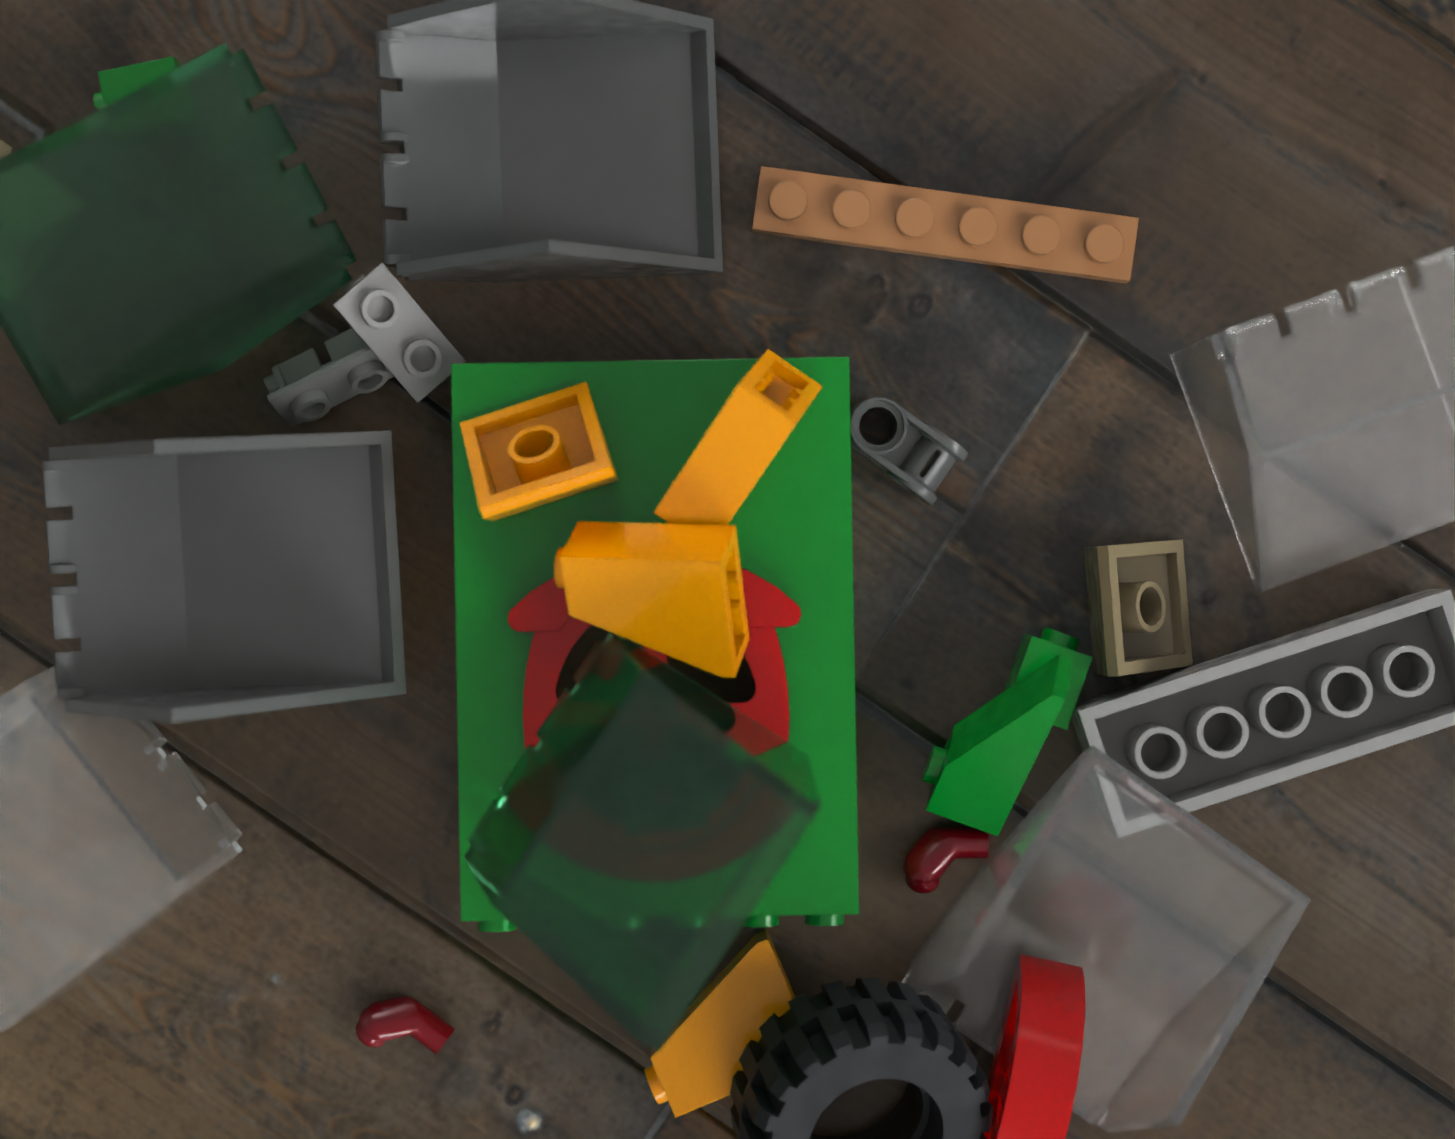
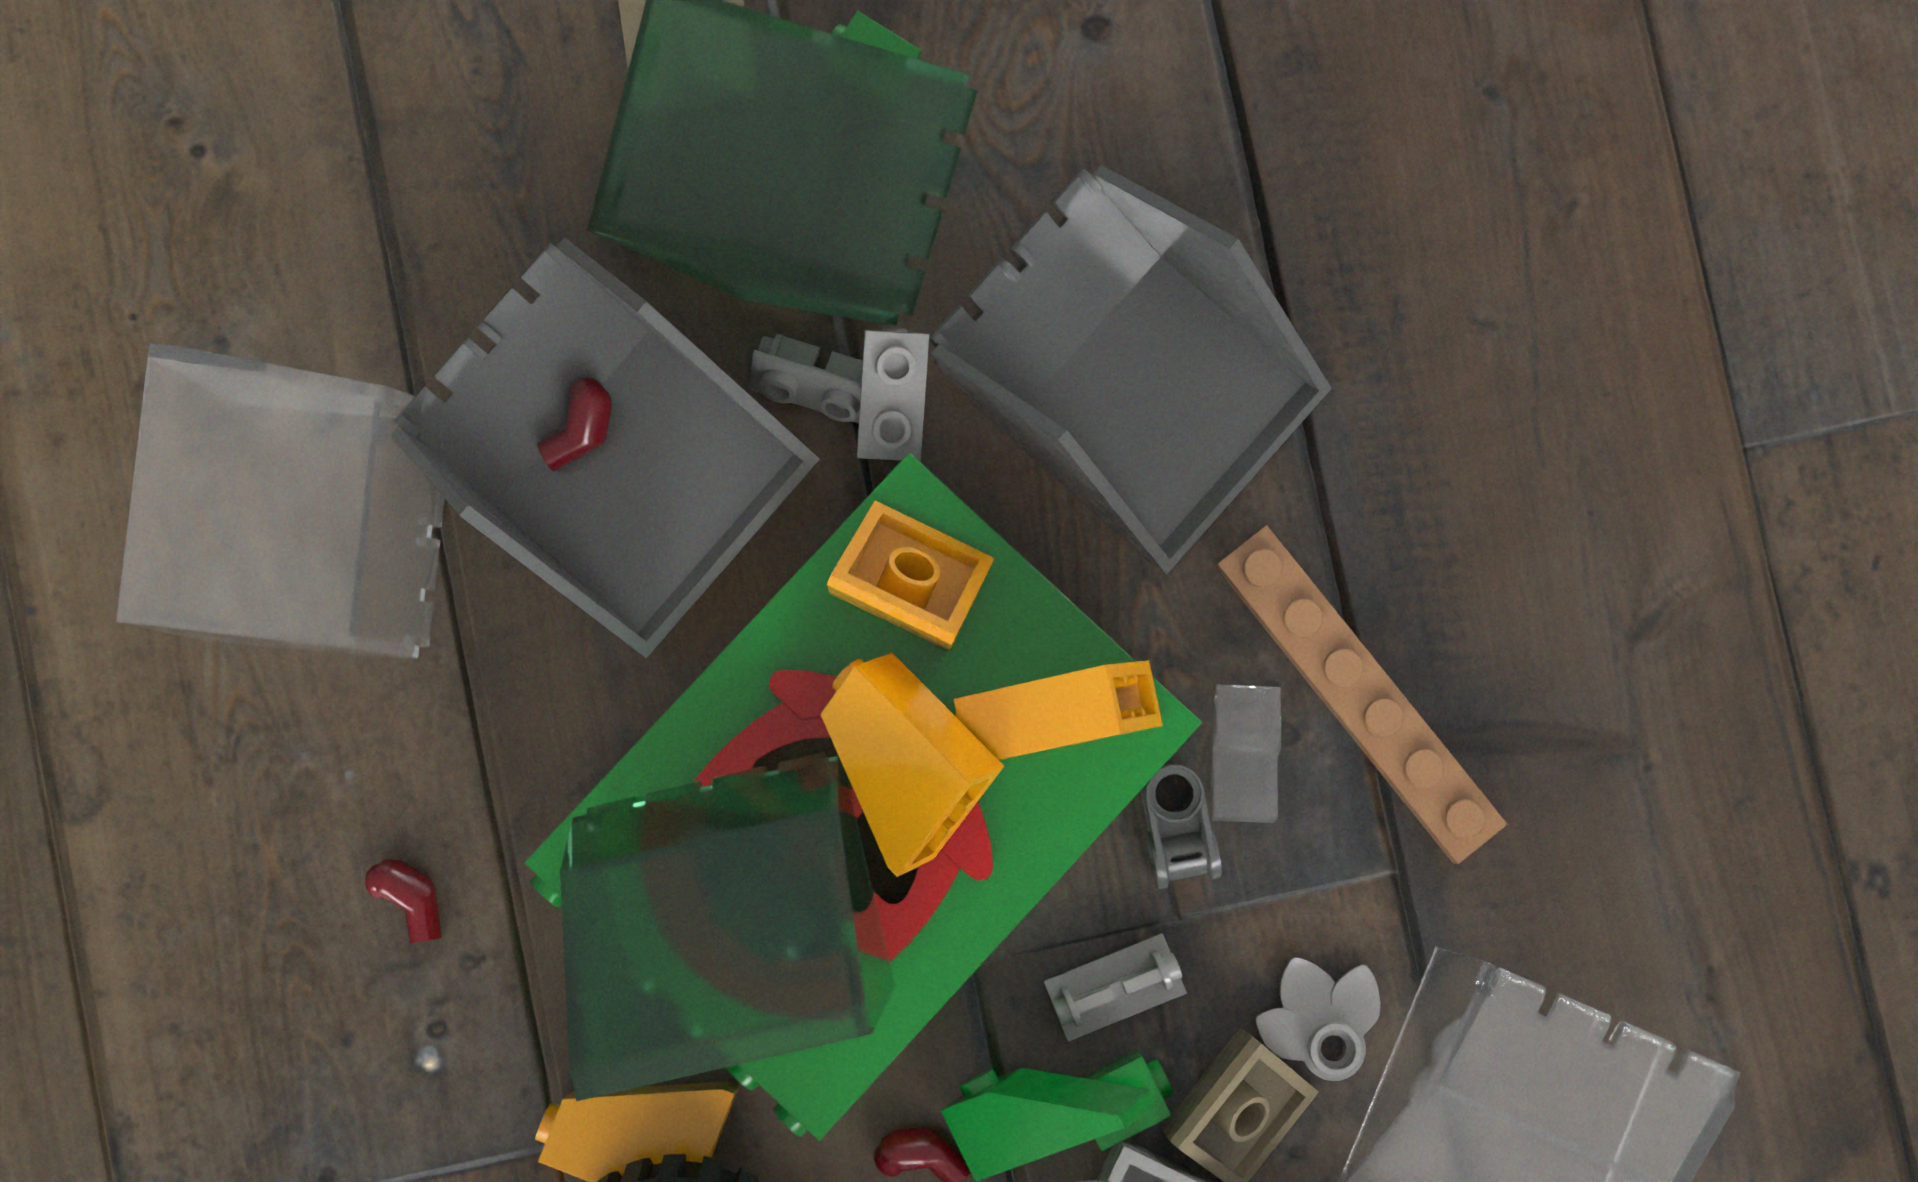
camera: 35 degrees right, 5 degrees down
(199, 570) = (585, 427): none -> dark red arm
(902, 347) = (1245, 753): none -> clear slope
(967, 604) = (1115, 987): none -> light grey hinge
(1126, 480) = (1318, 1009): none -> light grey plate

